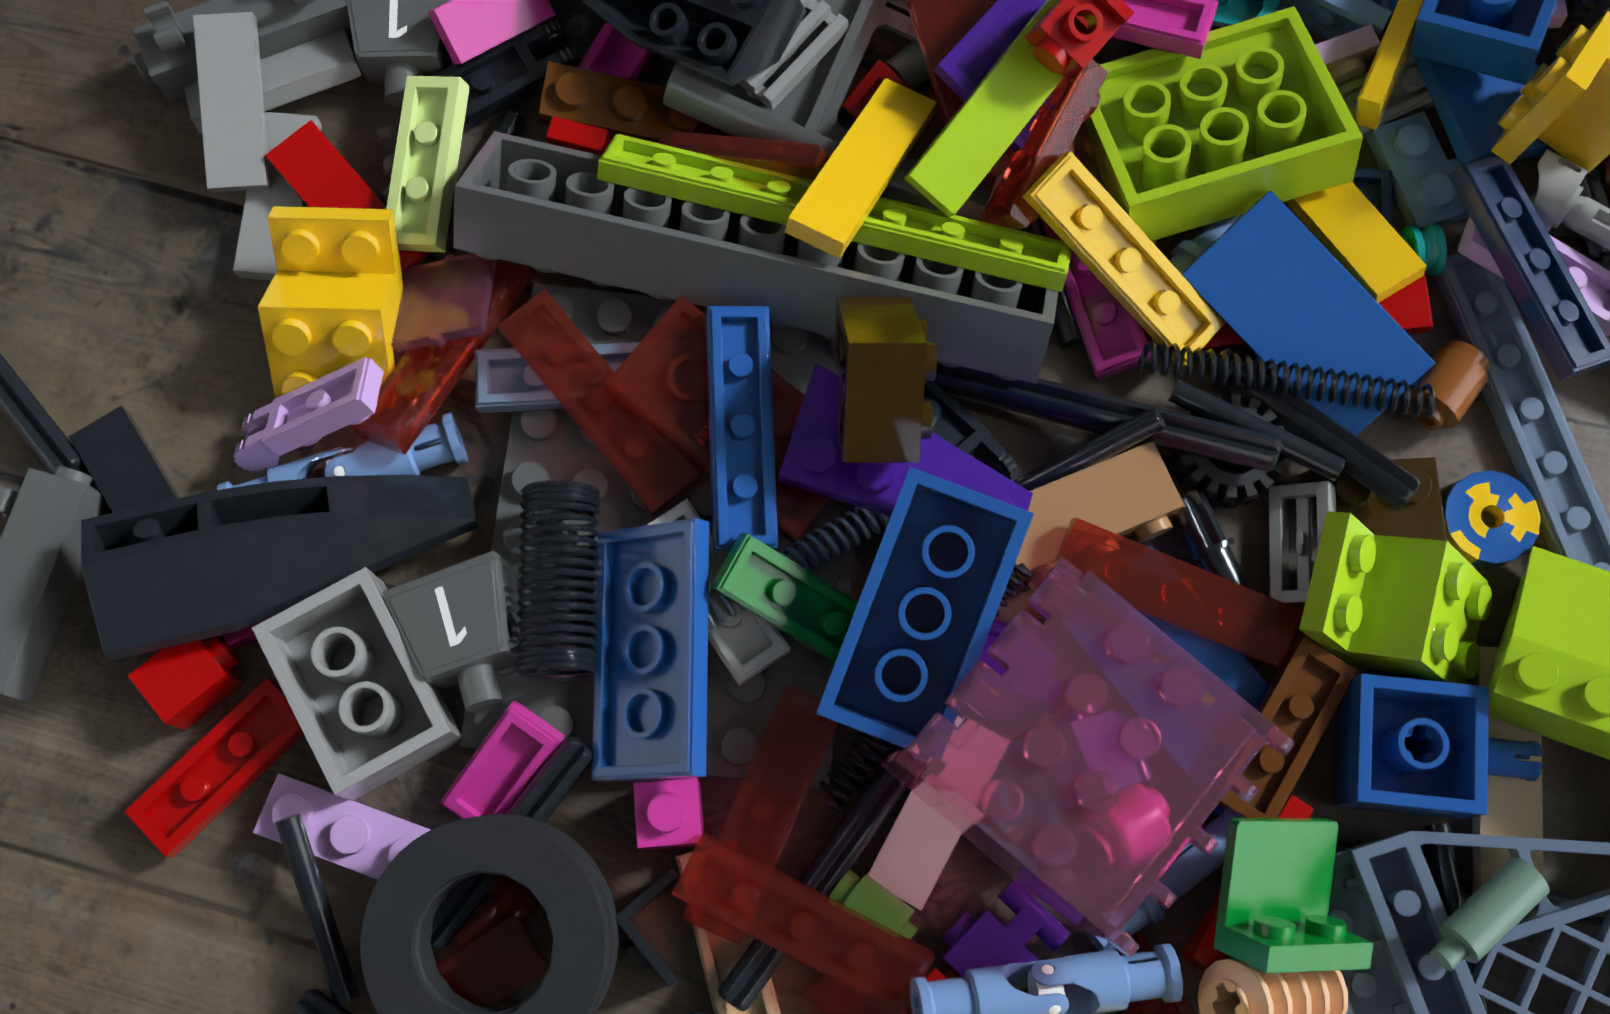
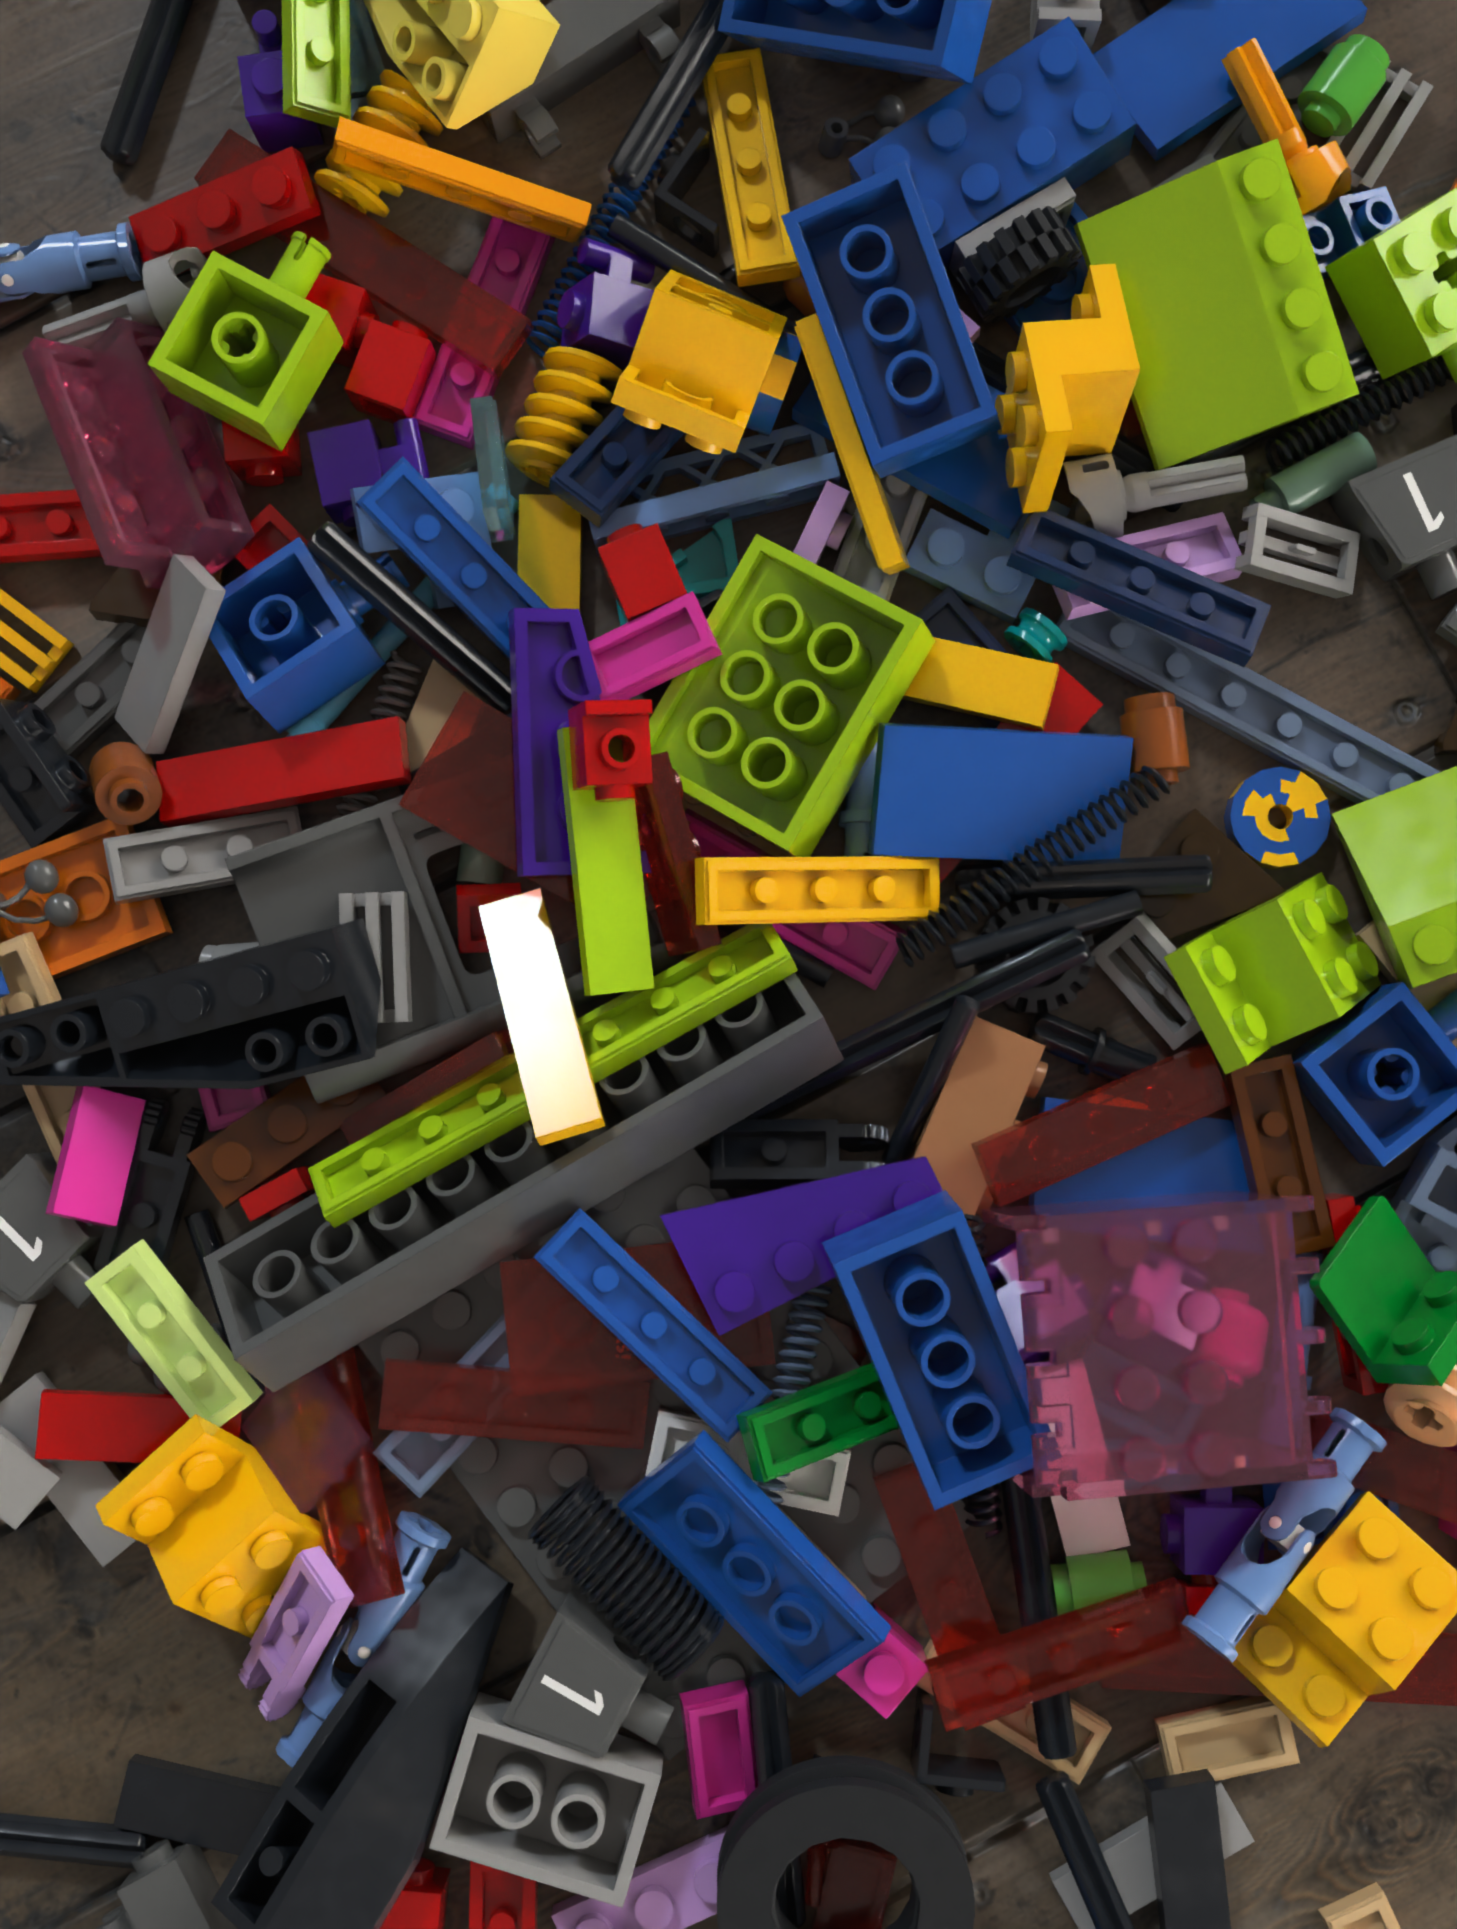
camera: 40 degrees left, 10 degrees up
(882, 376) = (733, 1193): dark brown brick -> none

